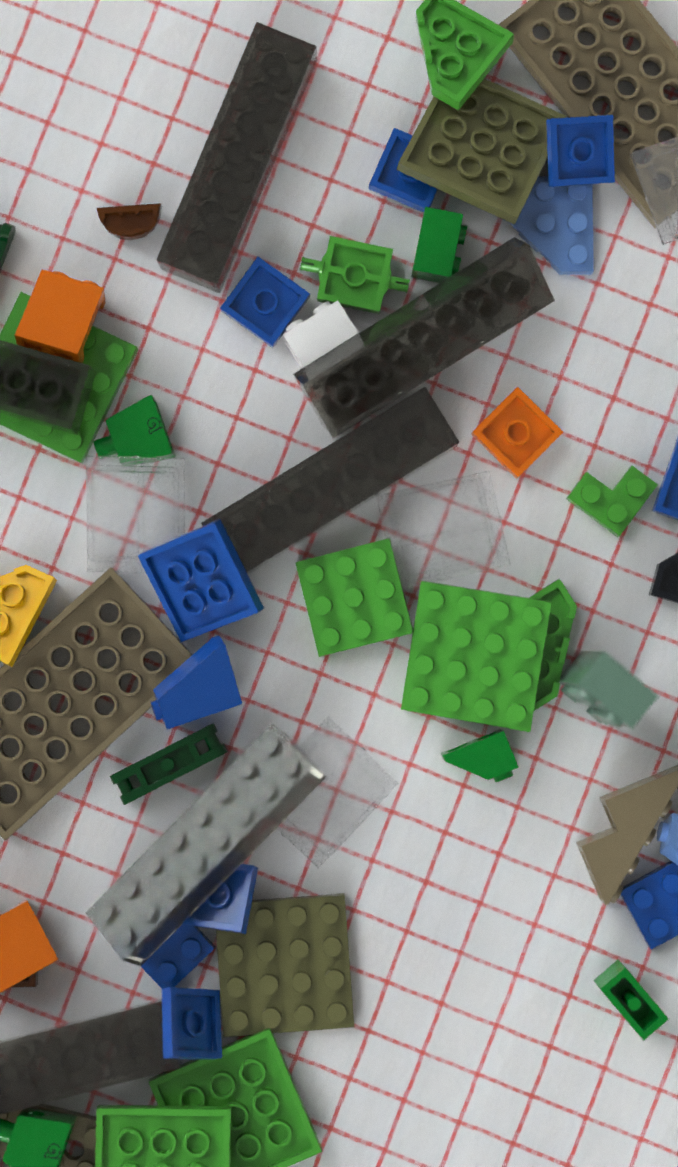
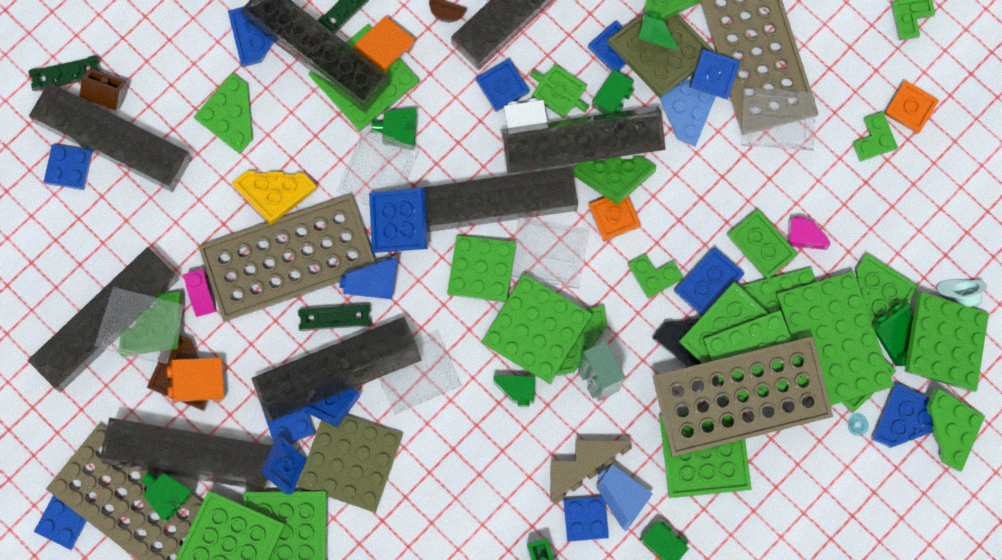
camera: 20 degrees right, 10 degrees down
(466, 120) = (655, 30): none -> green slope
(496, 374) = (614, 176): none -> bright green plate

